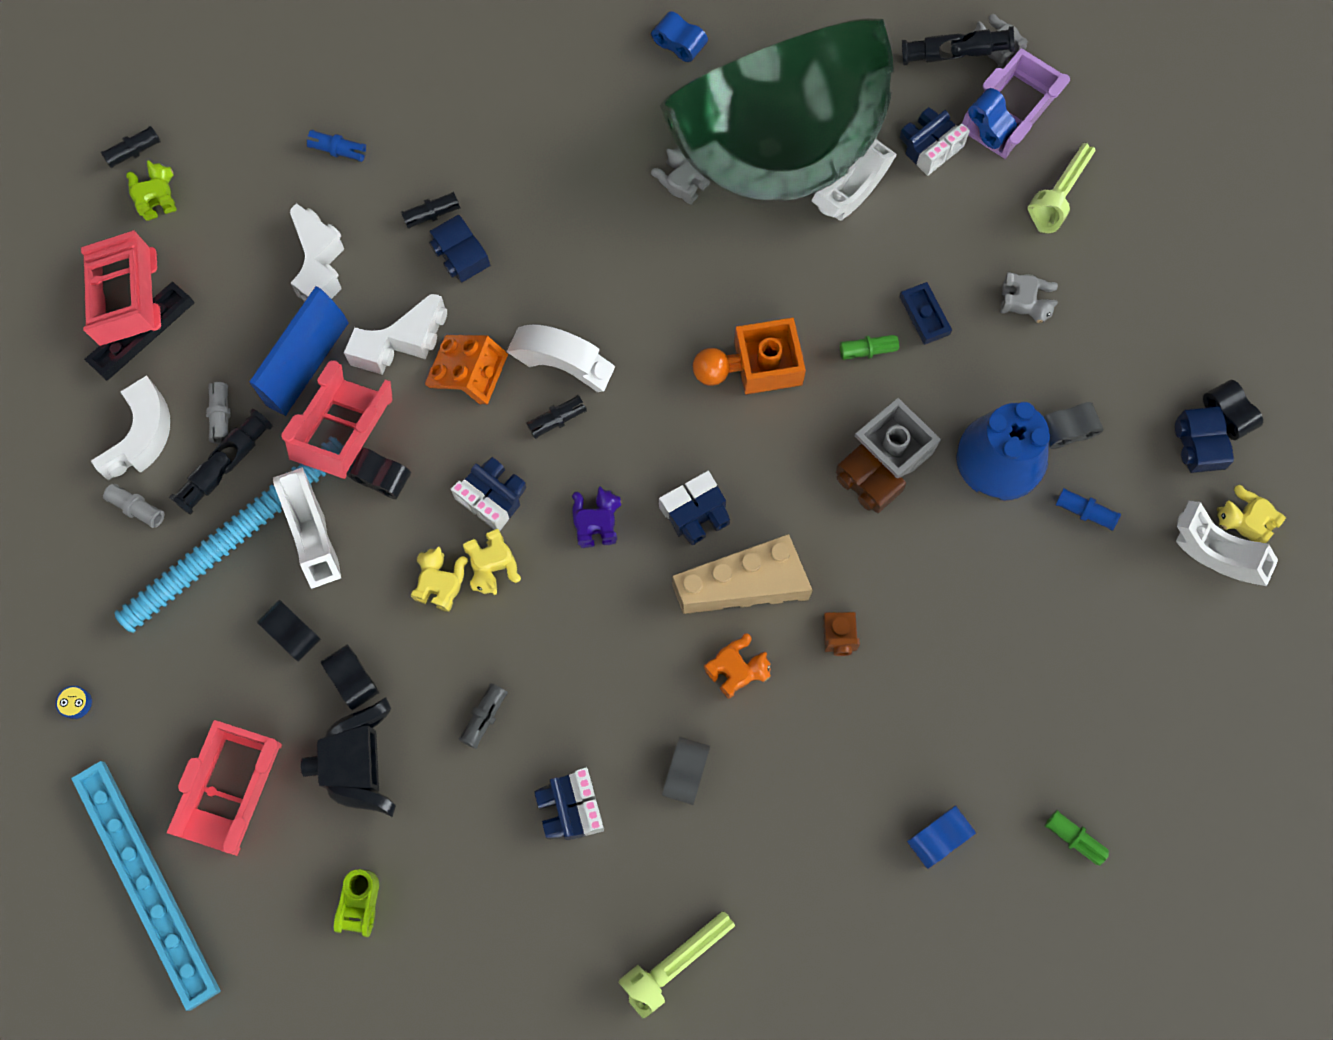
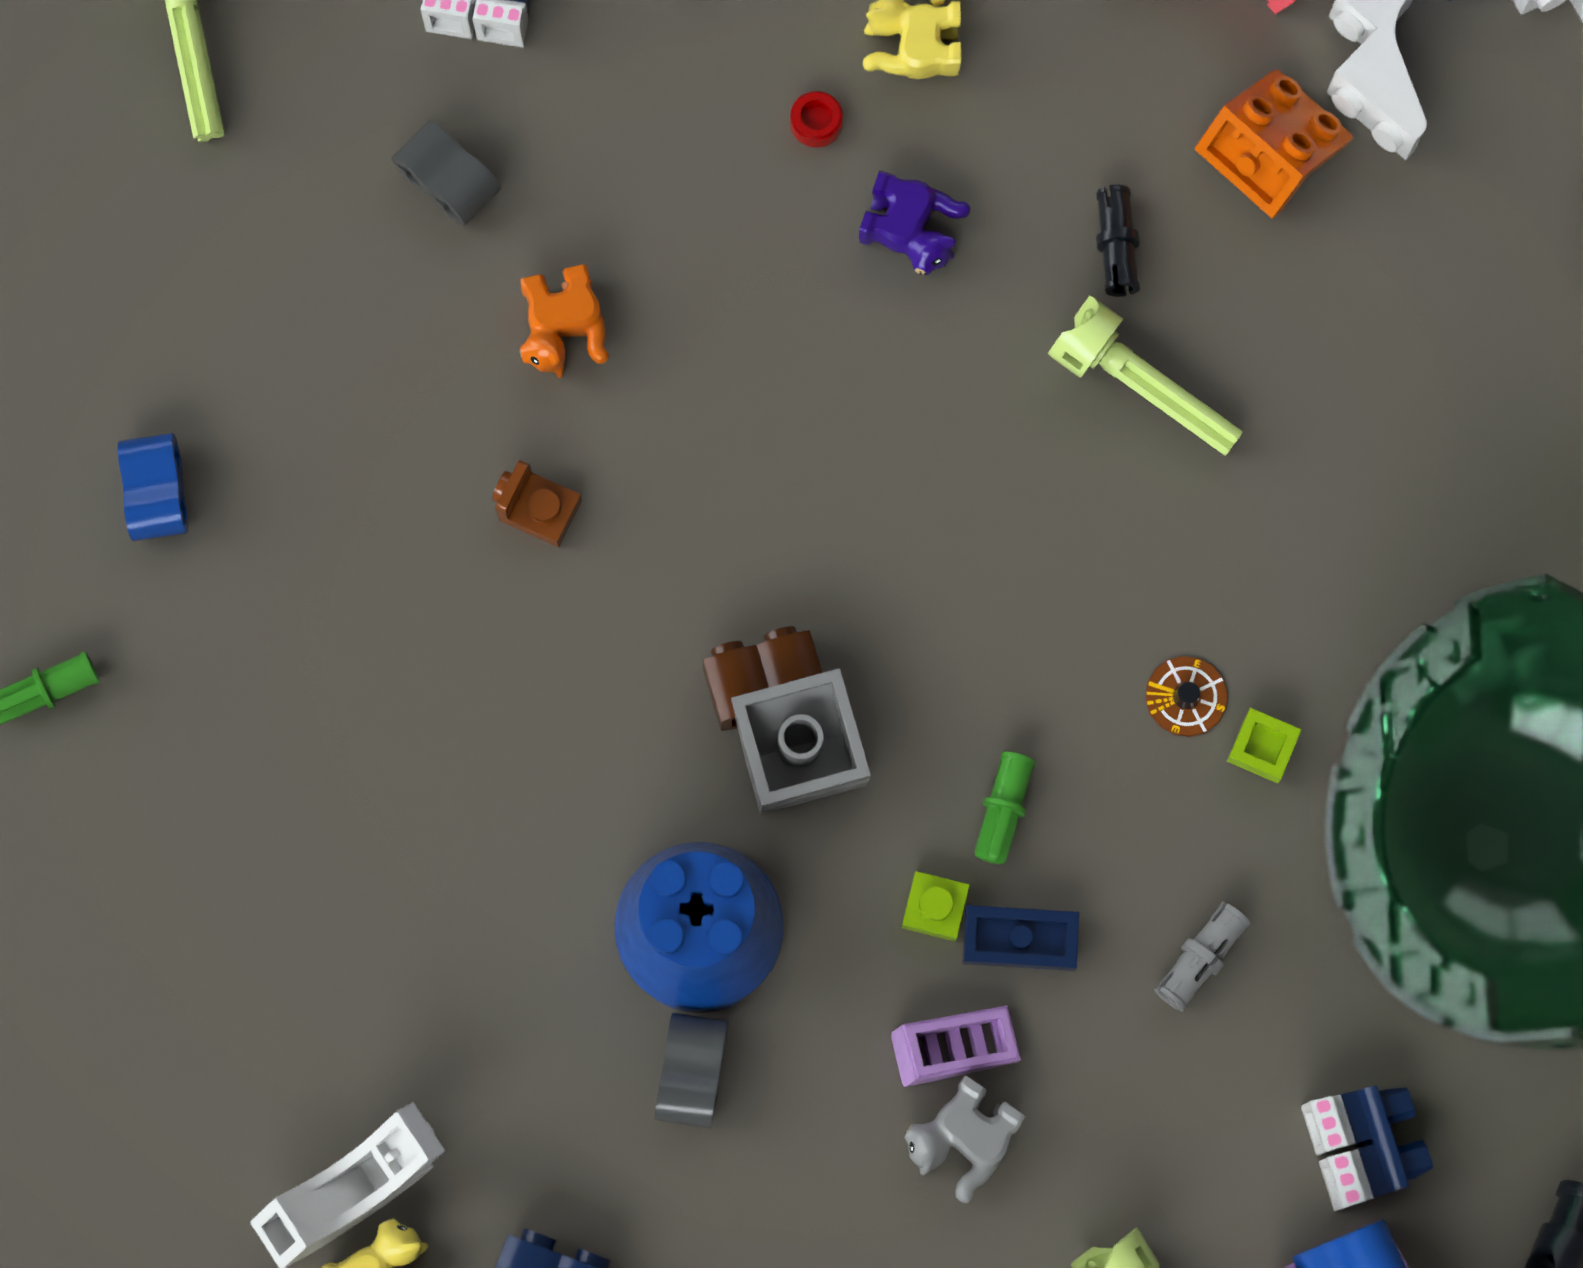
camera: 115 degrees right, 5 degrees up
(459, 248) = (1505, 216): dark blue brick -> none
(488, 496) = (1027, 77): hips -> none
(558, 594) = (816, 119): none -> red tile
(563, 350) = (1215, 284): white arch -> none
(619, 401) = (1095, 343): none -> yellowish green piece
(694, 505) = (858, 376): dark blue hips -> none
(743, 579) = (689, 408): tan wedge -> none
(765, 355) = (1045, 582): orange brick -> none
(768, 296) = (1186, 696): none -> dark orange piece
(777, 249) = (1264, 745): none -> lime plate
(852, 189) = (1325, 936): white arch -> none
(888, 236) = (1202, 956): none -> light grey pin
(930, 358) = (935, 906): none -> lime plate
(1002, 334) = (909, 1055): none -> lavender slope
(1088, 509) = (533, 1012): blue pin -> none

